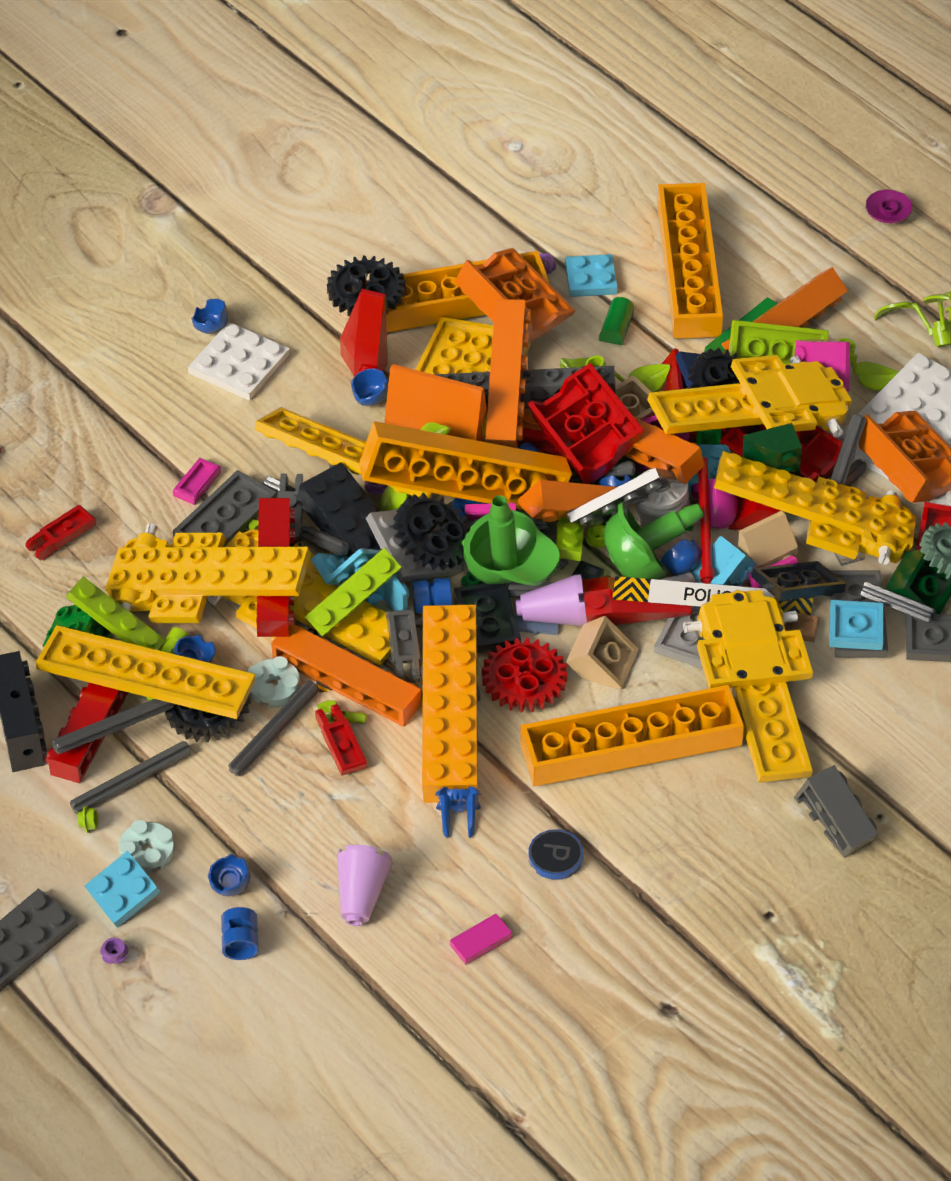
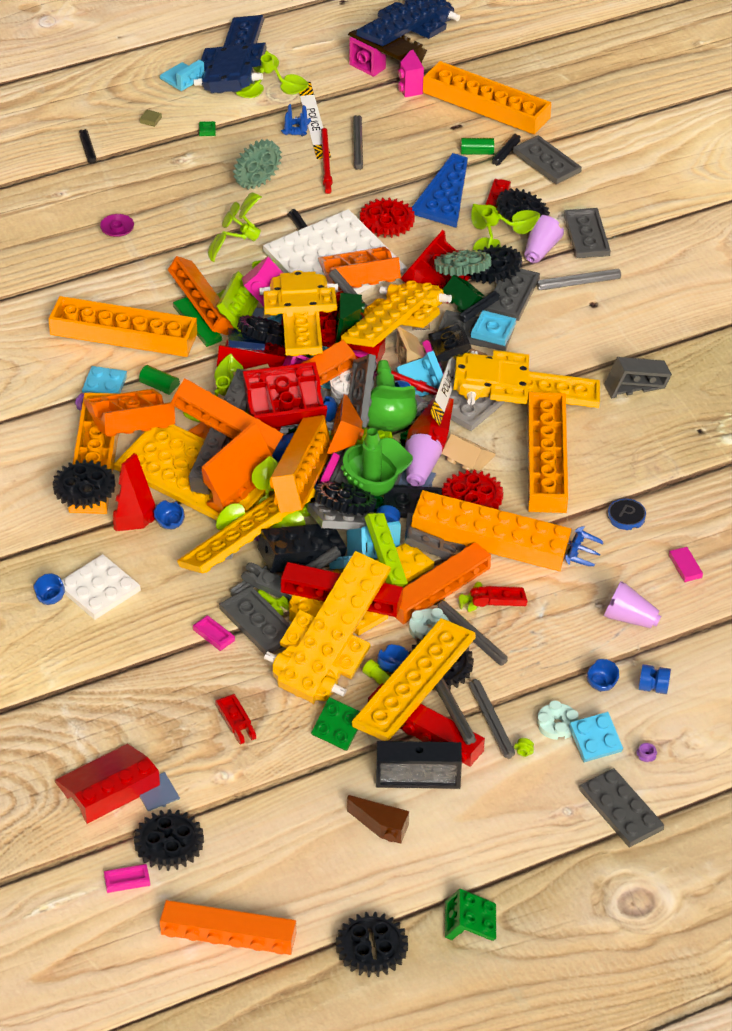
camera: 75 degrees left, 5 degrees down
(113, 615) = (347, 692): lime plate -> none

